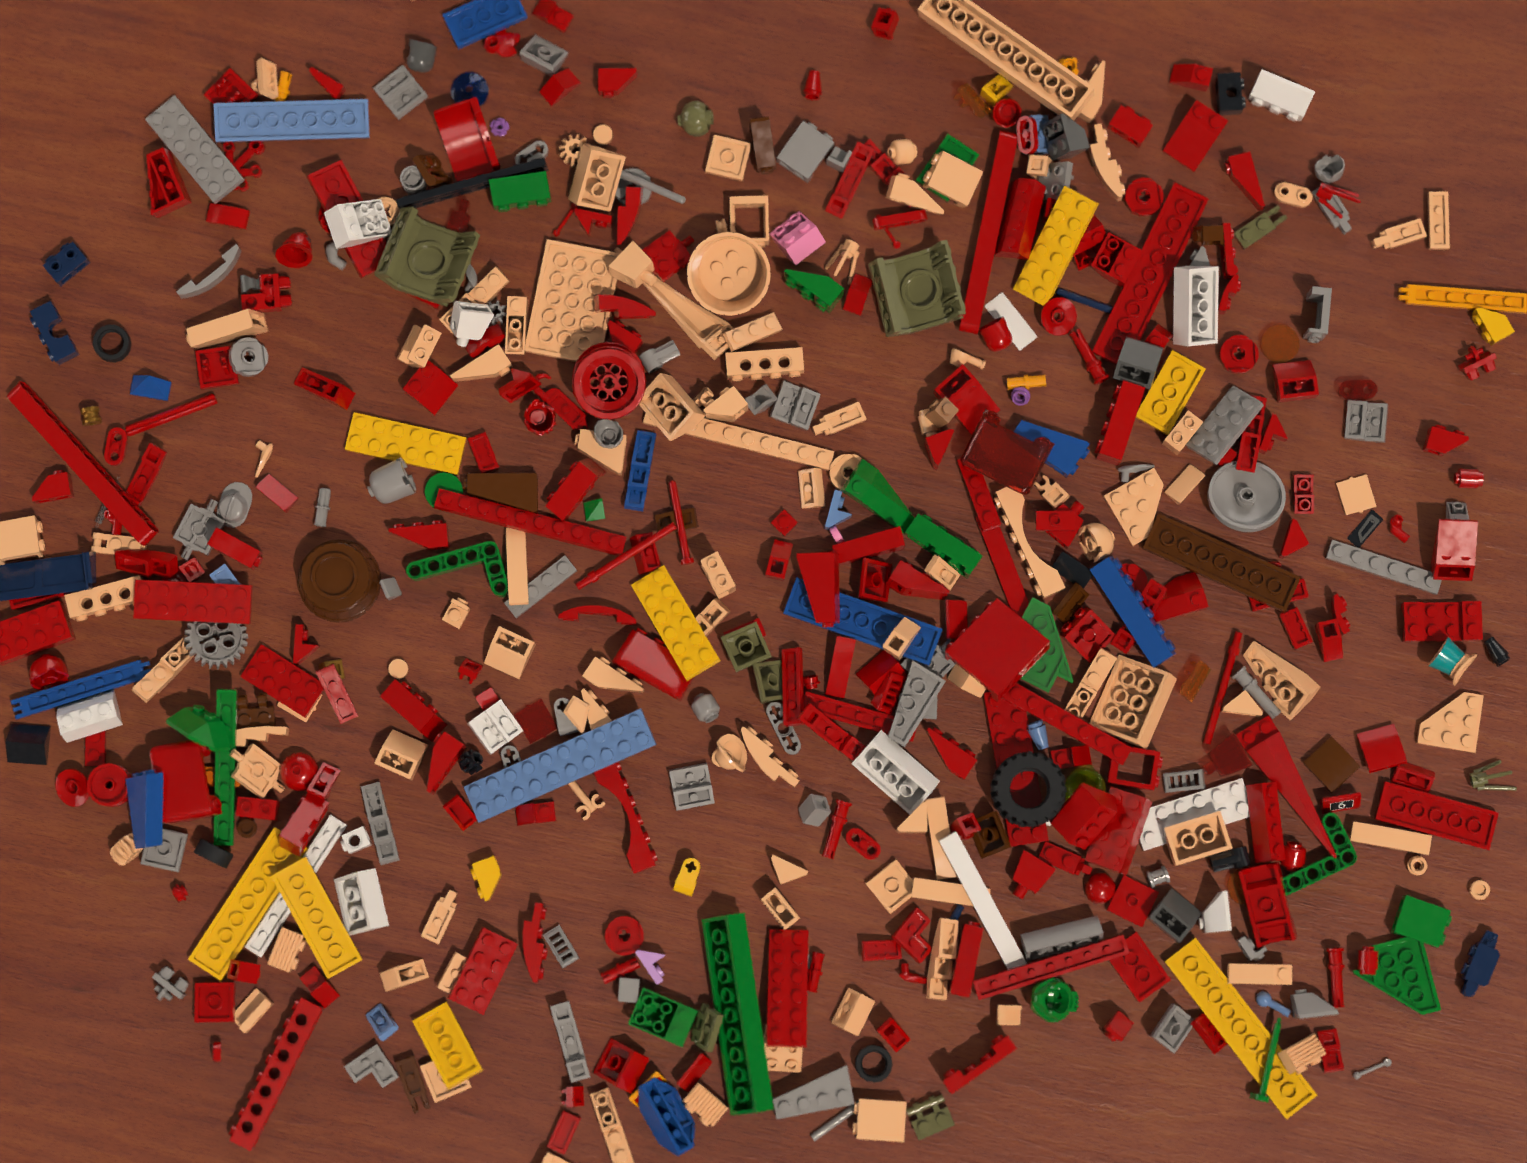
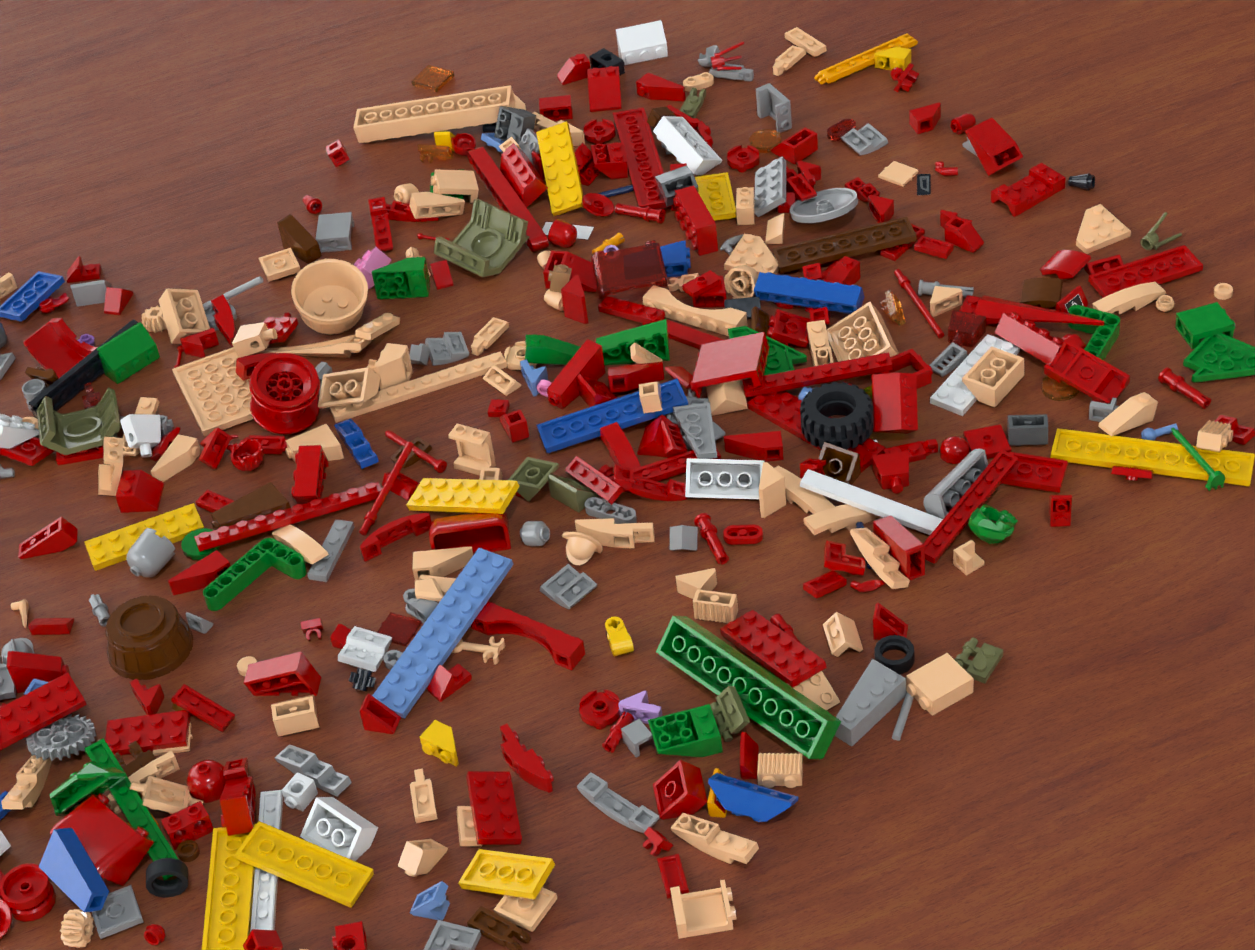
camera: 30 degrees left, 40 degrees down
(286, 950) = (293, 907): light nougat brick -> none
(319, 987) = (347, 914): red slope -> none
(444, 757) = (335, 684): red slope -> none
(456, 612) = (271, 602): light nougat bracket -> none
(509, 652) = (337, 594): light nougat slope -> none
(516, 325) = (182, 417): light nougat slope -> none
(568, 961) = (564, 746): light grey slope -> none
(594, 510) = (338, 483): green slope -> none
(608, 433) = (309, 424): light grey hair -> none
(614, 80) = (158, 273): red slope -> none
(696, 118) = (237, 258): olive plant -> none
(773, 356) = (409, 332): light nougat brick -> none
(821, 581) = (558, 407): red slope -> none
(838, 159) = (363, 224): light grey panel -> none
(891, 886) = (793, 546): light nougat tile -> none
(900, 219) = (445, 219): red beam -> none
(1001, 1047) = (975, 603): red piece -> none
(1027, 136) = (488, 140): red plate -> none
(1118, 840) = (935, 410): red brick -> none
(1164, 878) = (989, 416): light grey bush -> none
(1172, 1028) = (1101, 487): light grey slope -> none
(1216, 915) = (1059, 402): white slope -> none
(1234, 859) = (1032, 375): black piece -> none
(1286, 683) = (960, 271): light nougat wedge -> none
(1309, 1005) = (1188, 409): light grey slope -> none
(1368, 960) = (1195, 358): red brick -> none
(1382, 567) = (957, 191): light grey plate -> none
(1451, 660) = (1058, 195): hat -> none

